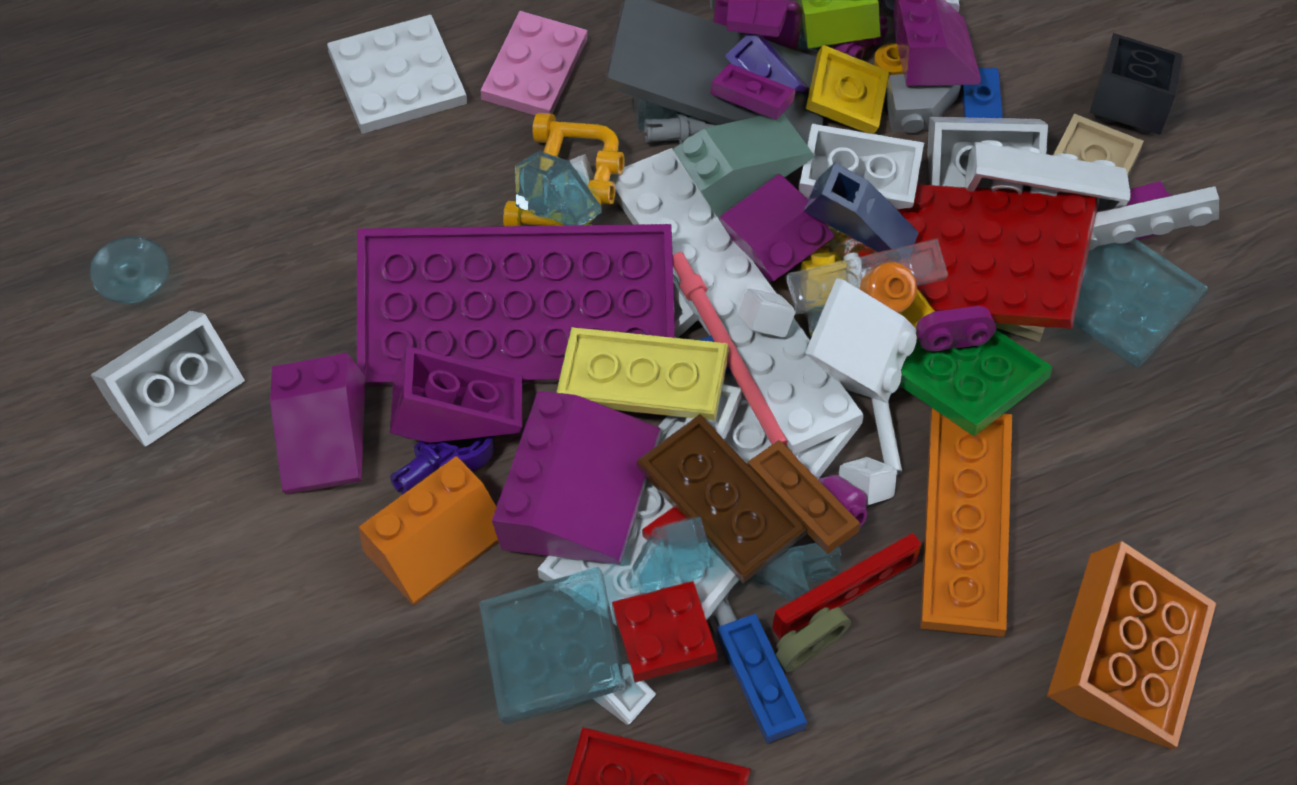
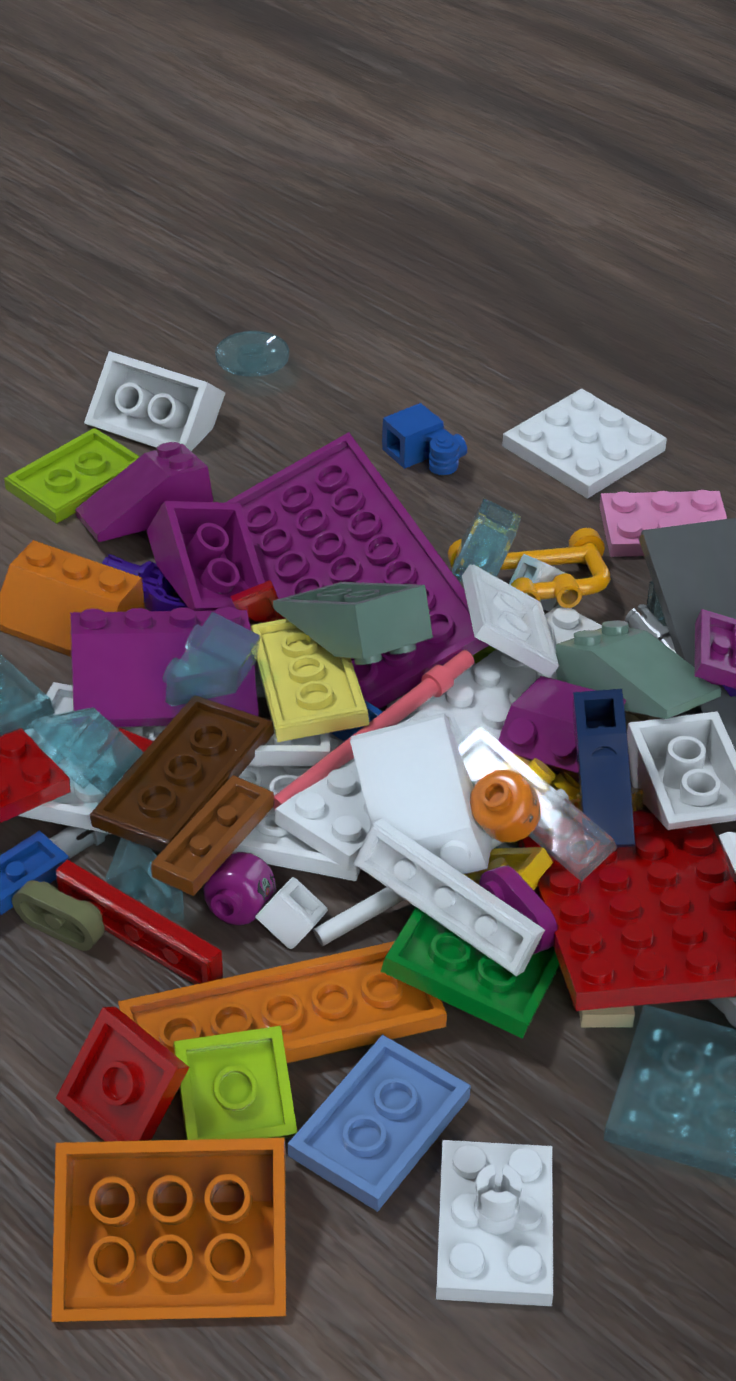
camera: 70 degrees right, 15 degrees down
(228, 476) = (70, 474): none -> lime tile
(336, 181) = (420, 435): none -> blue brick
(531, 377) = (258, 602): none -> red tile
(611, 310) = (361, 618): none -> sand green slope
(616, 431) = (214, 661): none -> clear light blue slope
(659, 210) = (509, 620): none -> white tile
(937, 364) = (449, 897): none -> white tile
(1011, 636) = (121, 1079): none -> red plate
(1036, 568) = (236, 1086): none -> lime plate
(1084, 490) = (379, 1122): none -> medium blue plate
(1181, 455) = (495, 1223): none -> white plate

